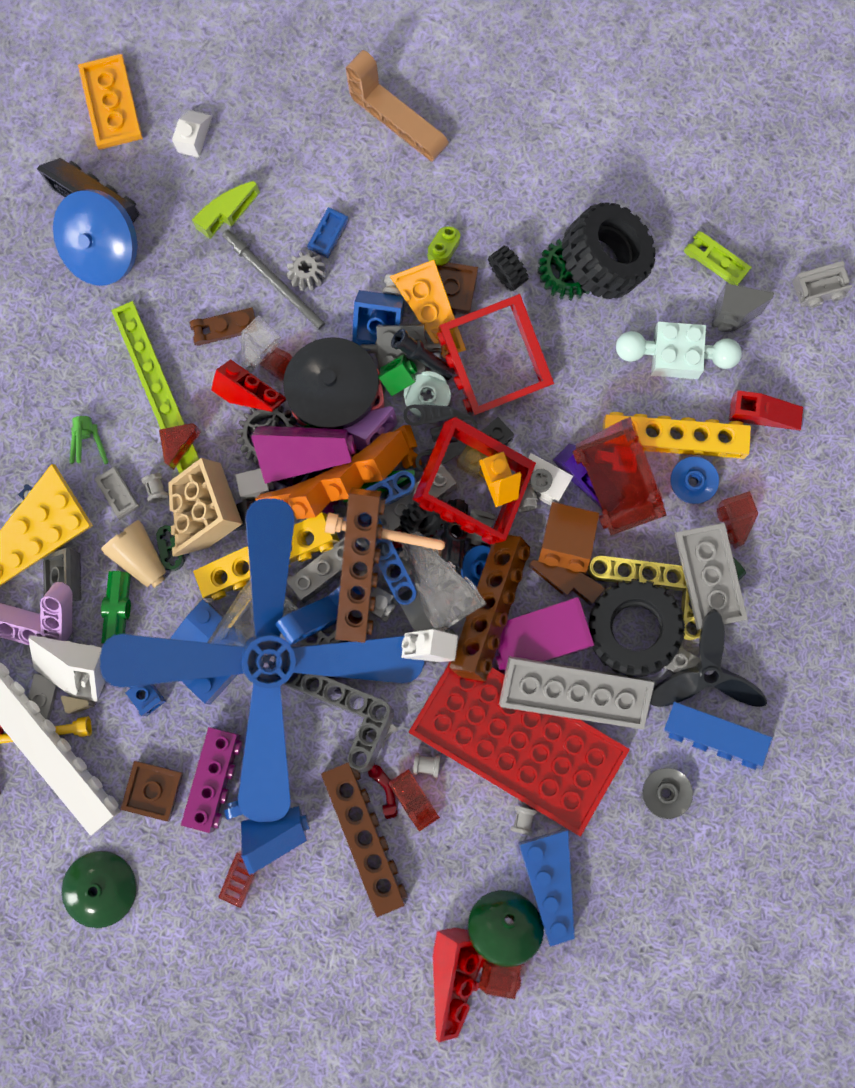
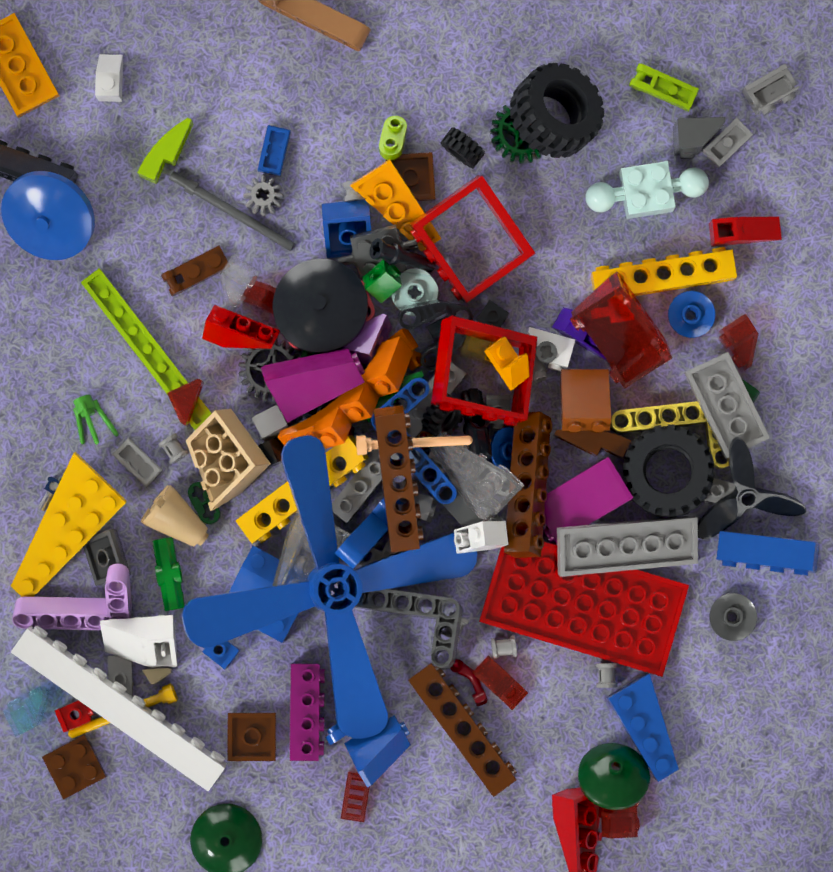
camera: 25 degrees left, 5 degrees up
(768, 325) = (727, 142): none -> light grey plate

